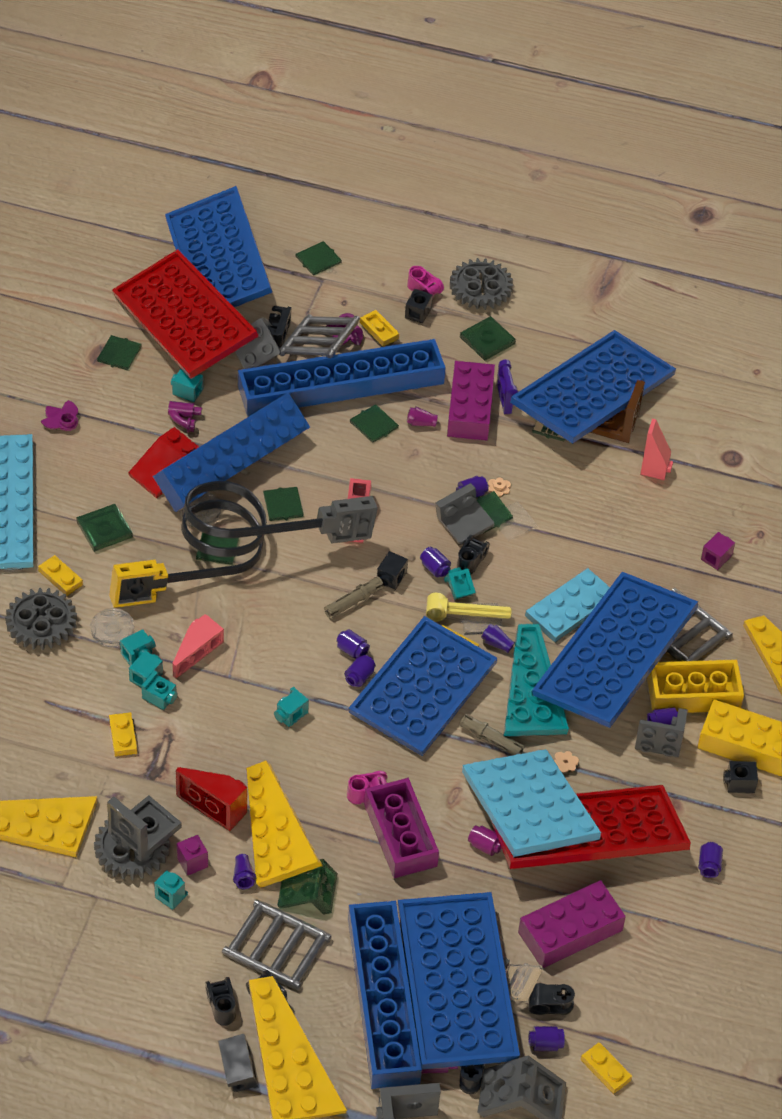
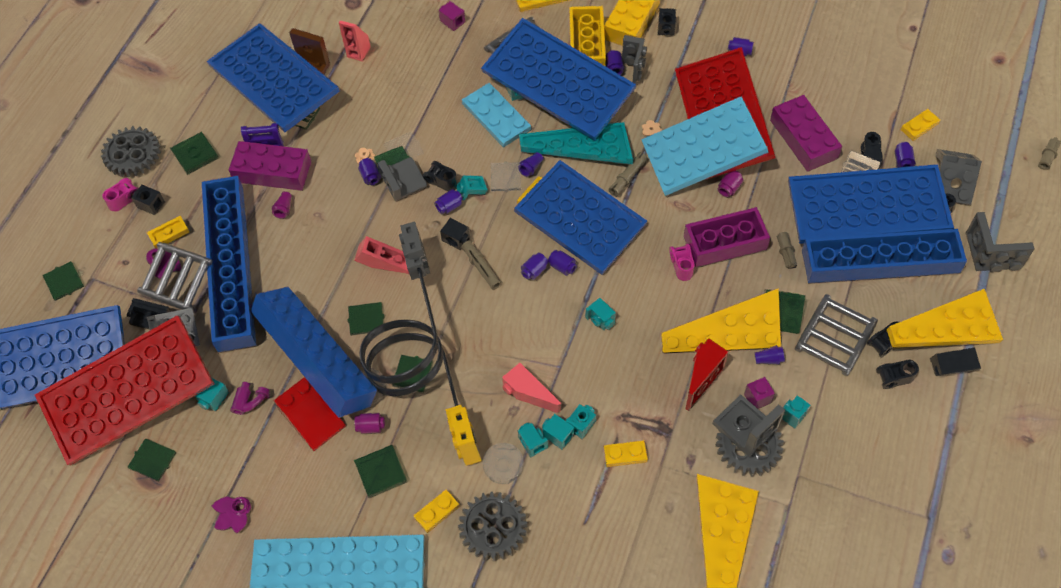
camera: 80 degrees left, 10 degrees up
(155, 511) = (369, 423): none -> magenta brick
(374, 423) = (280, 244): clear green piece -> none
(392, 895) = (786, 249): none -> dark tan axle
(439, 607) = (498, 200): light yellow axle -> none

